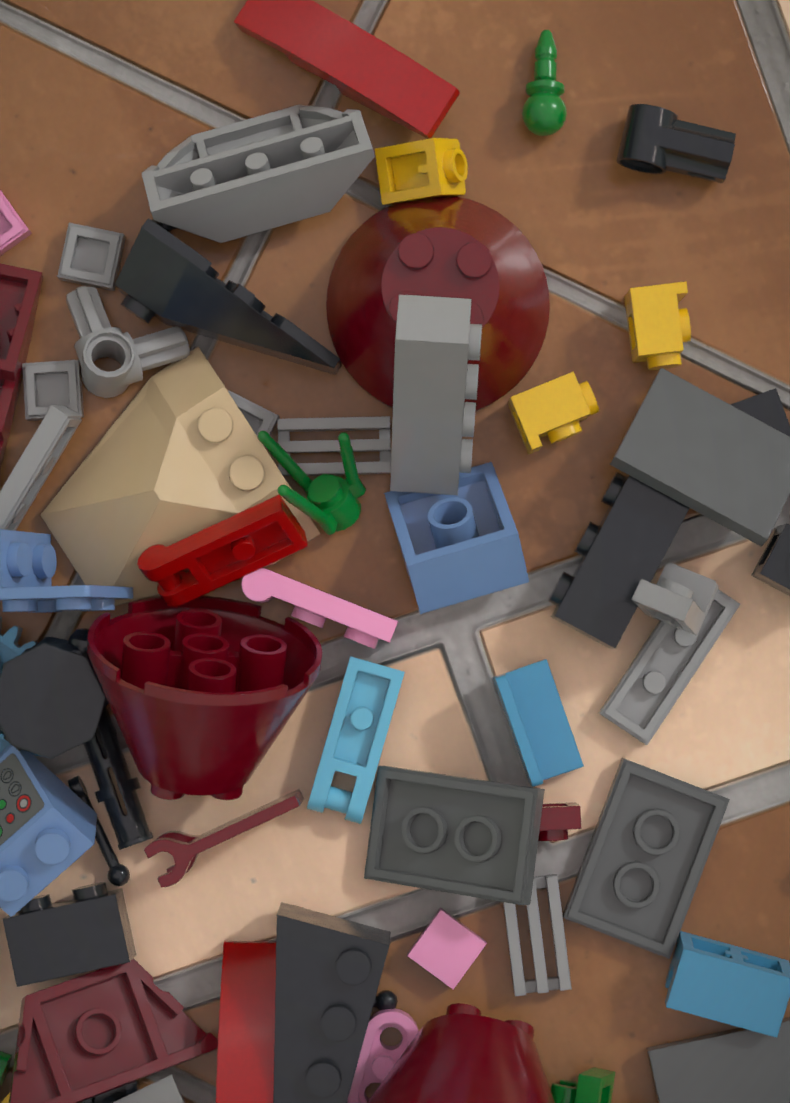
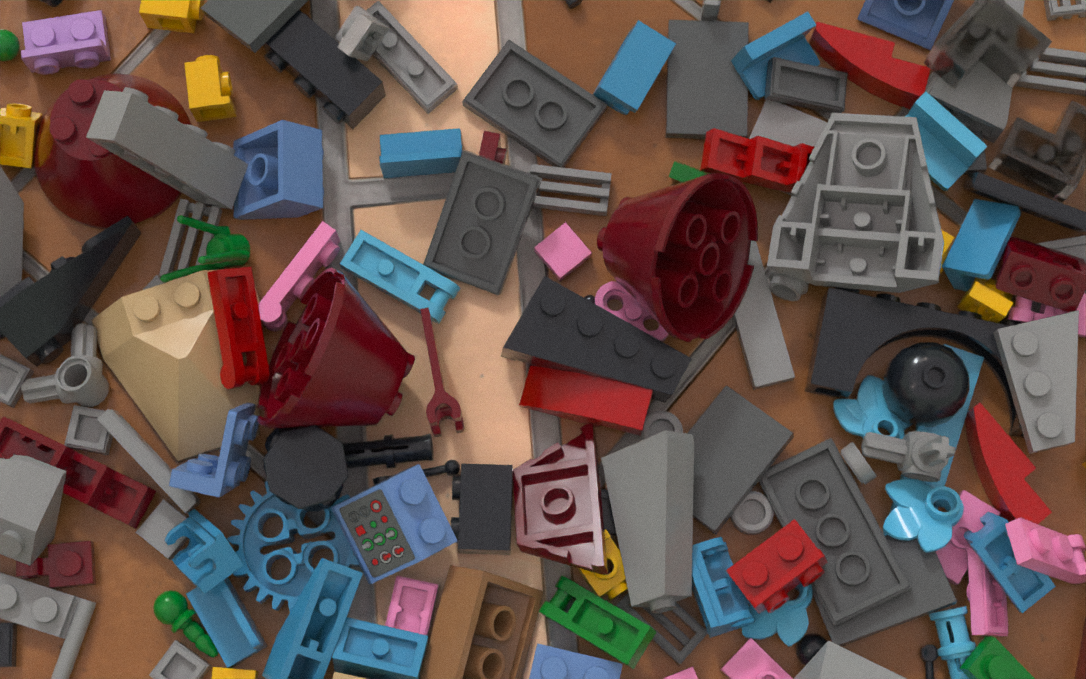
camera: 75 degrees left, 10 degrees down
(572, 195) = (65, 42): none -> lavender bracket

